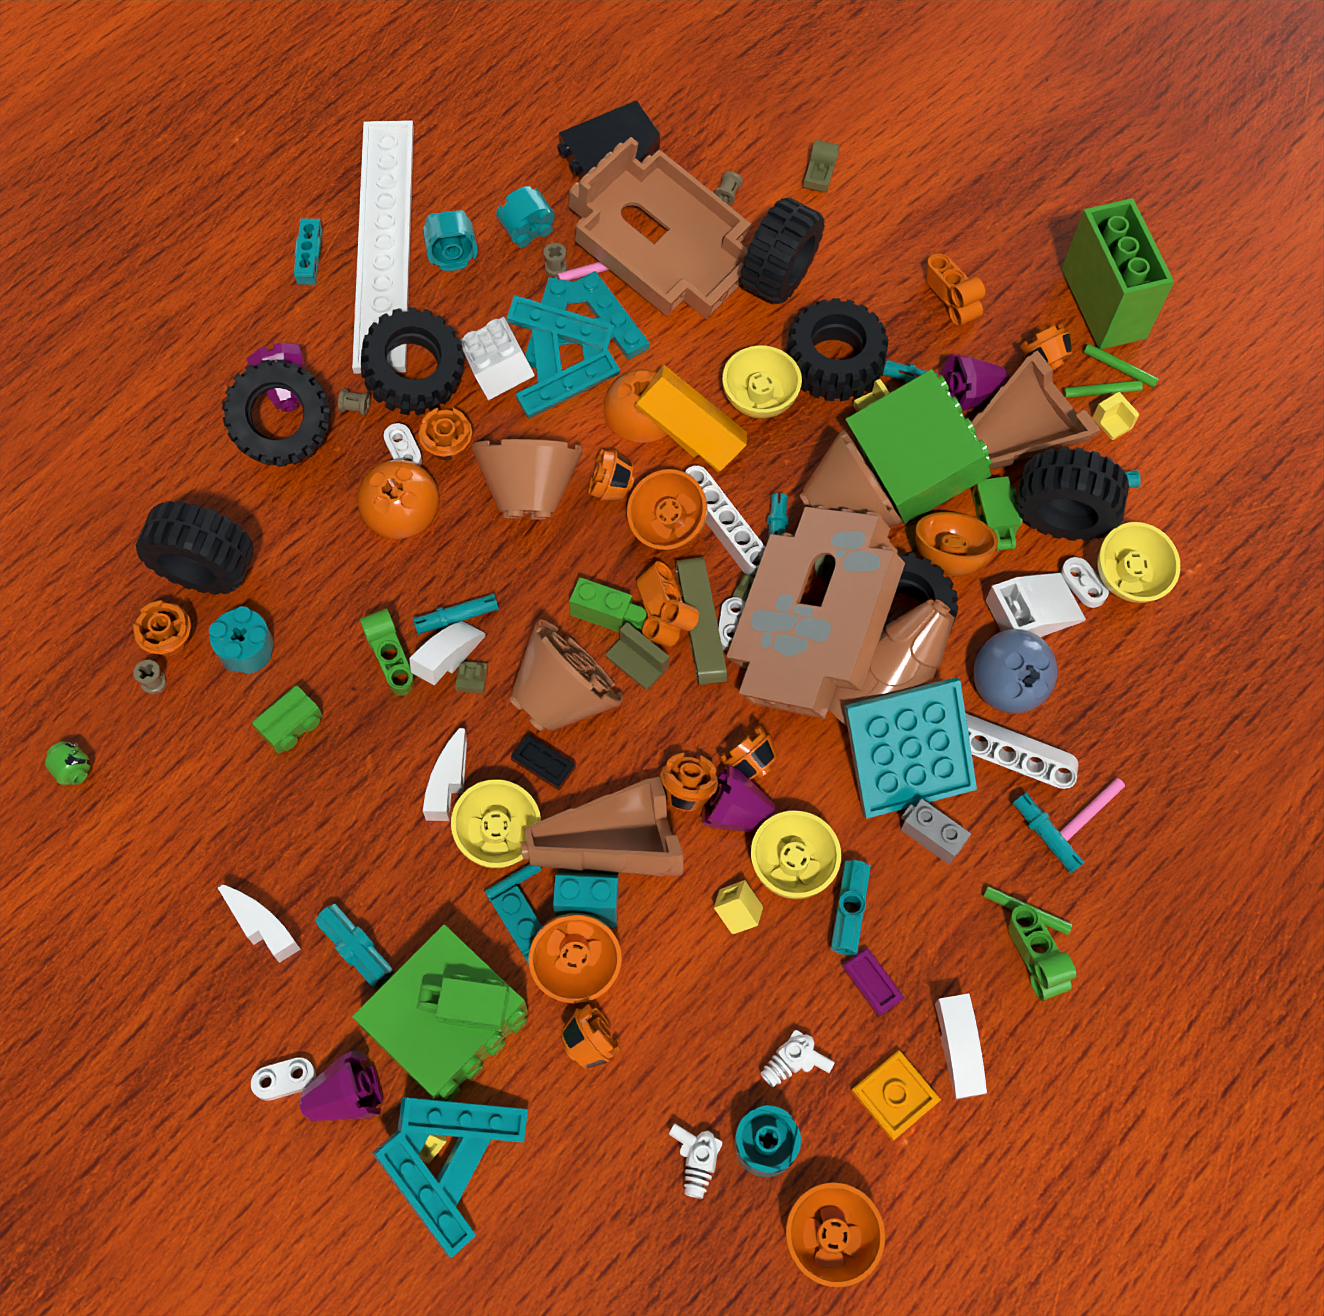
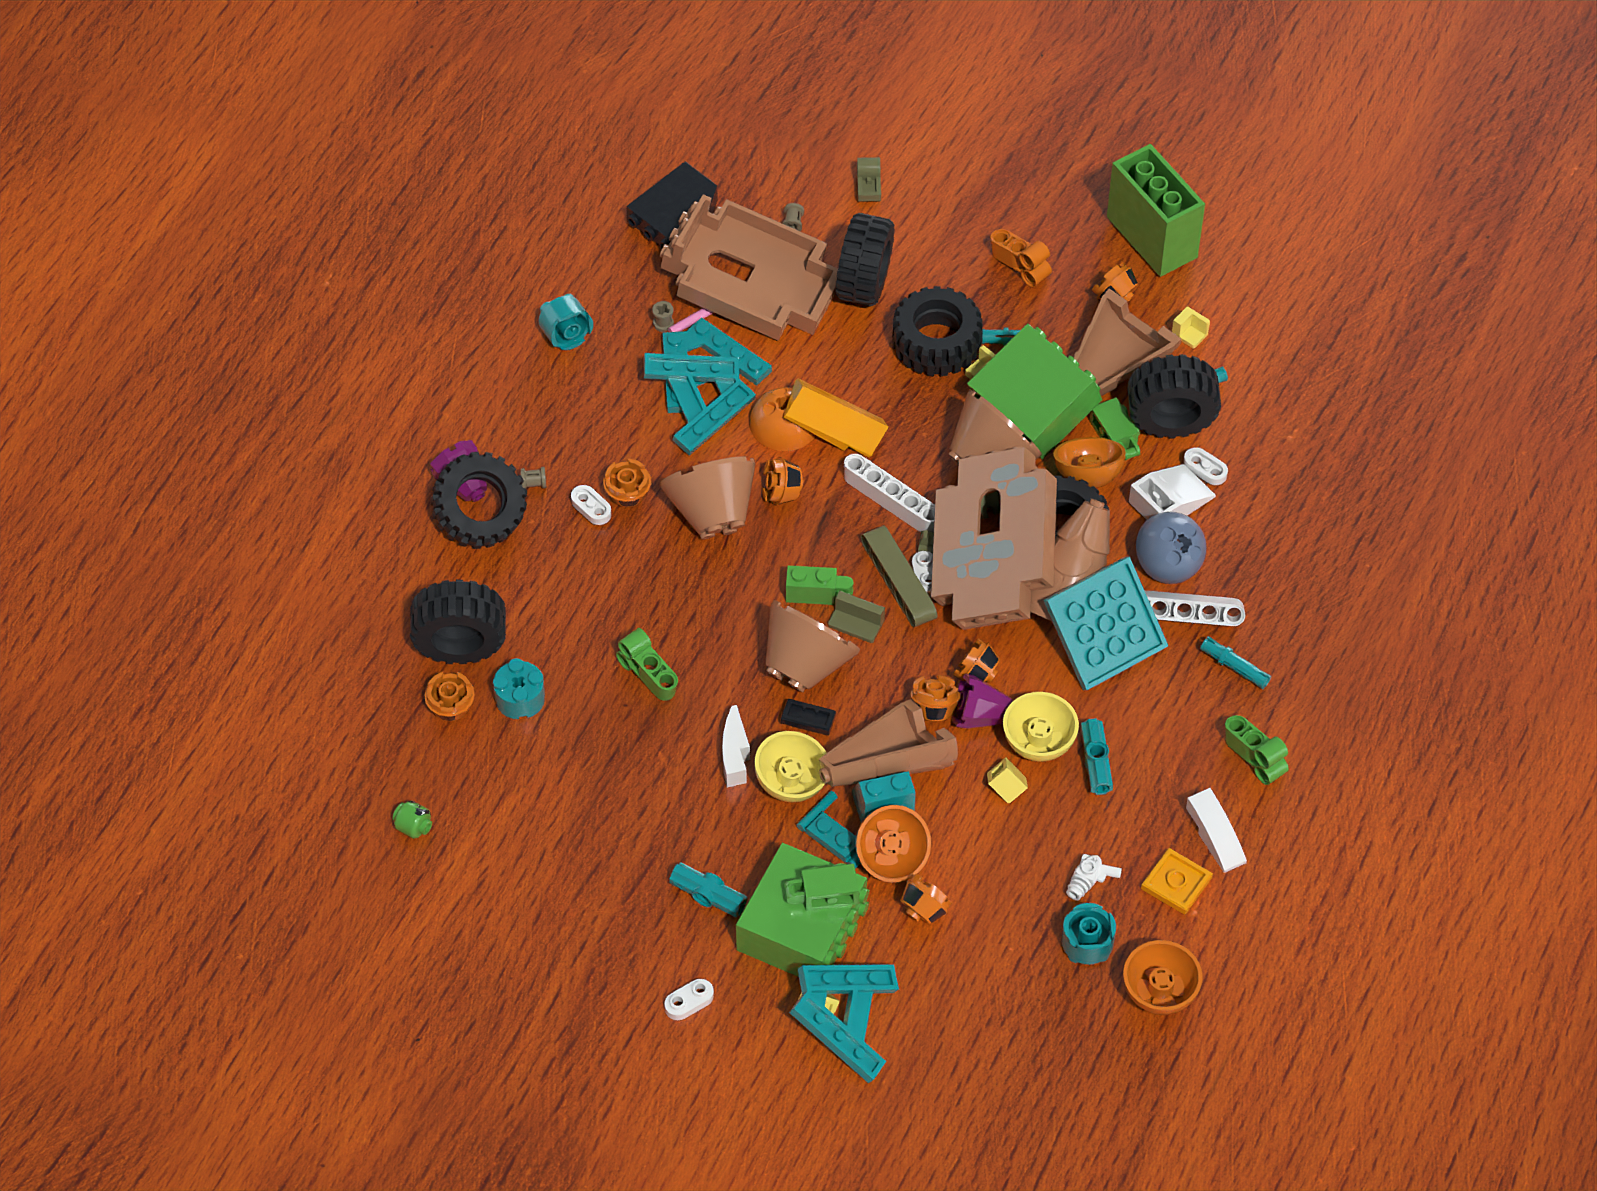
camera: 15 degrees left, 10 degrees down
(149, 676) = (448, 736): dark tan bush -> none
(259, 923) = (623, 893): white slope -> none
(287, 720) = (583, 739): bright green brick -> none
(308, 251) = (438, 363): teal piece -> none
(343, 1091) = (742, 991): magenta cone -> none
(384, 231) = (504, 342): white plate -> none
(400, 512) = (607, 557): orange piece -> none
(417, 329) = (584, 404): black tyre -> none
(445, 651) = (696, 653): white slope -> none
(455, 614) = (682, 628): teal pin -> none
(471, 677) = (722, 669): olive tile -> none
(496, 358) = (644, 410): white slope -> none
(526, 216) = (625, 285): teal brick -> none
(658, 501) = (836, 483): orange piece -> none
(664, 606) = (866, 571): orange piece -> none
(701, 1158) = (1041, 963): white piece -> none
(761, 381) = (883, 372): light yellow piece -> none
(777, 519) = (933, 479): teal pin -> none
(872, 982) = (1132, 807): magenta tile -> none
(934, 831) = (1144, 684): light grey brick -> none
(973, 380) = (1062, 325): magenta cone -> none
(1011, 903) = (1220, 722): bright green bar -> none
(1092, 809) = (1266, 636): bright pink bar -> none
(1101, 389) = (1173, 308): bright green bar -> none
(1121, 365) = (1182, 285): bright green bar -> none
(1150, 561) = (1244, 437): light yellow piece -> none

